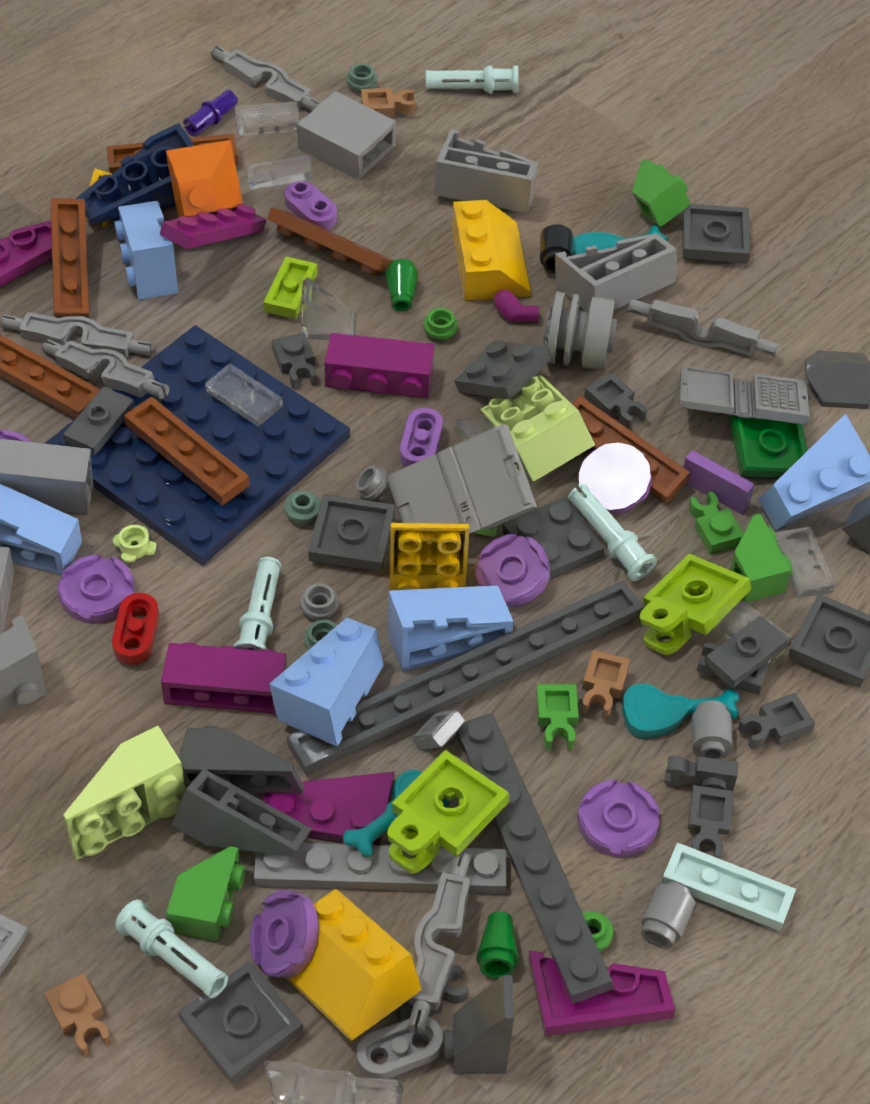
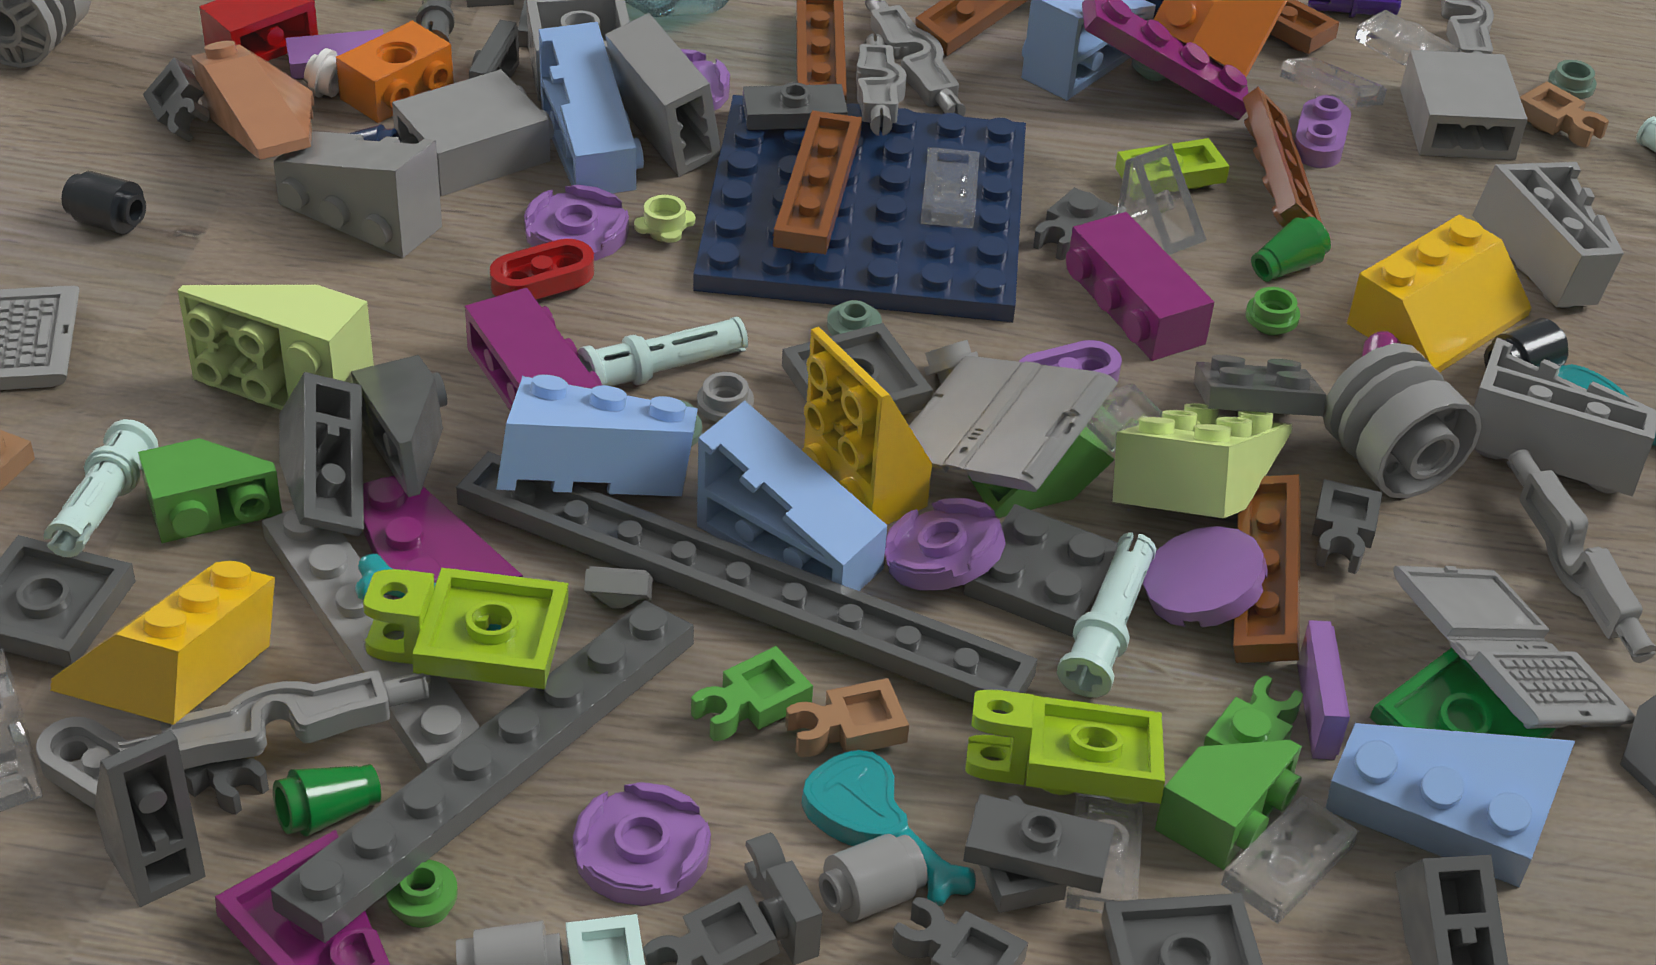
camera: 55 degrees right, 10 degrees down
(284, 934) = (181, 567): medium lavender tile -> none

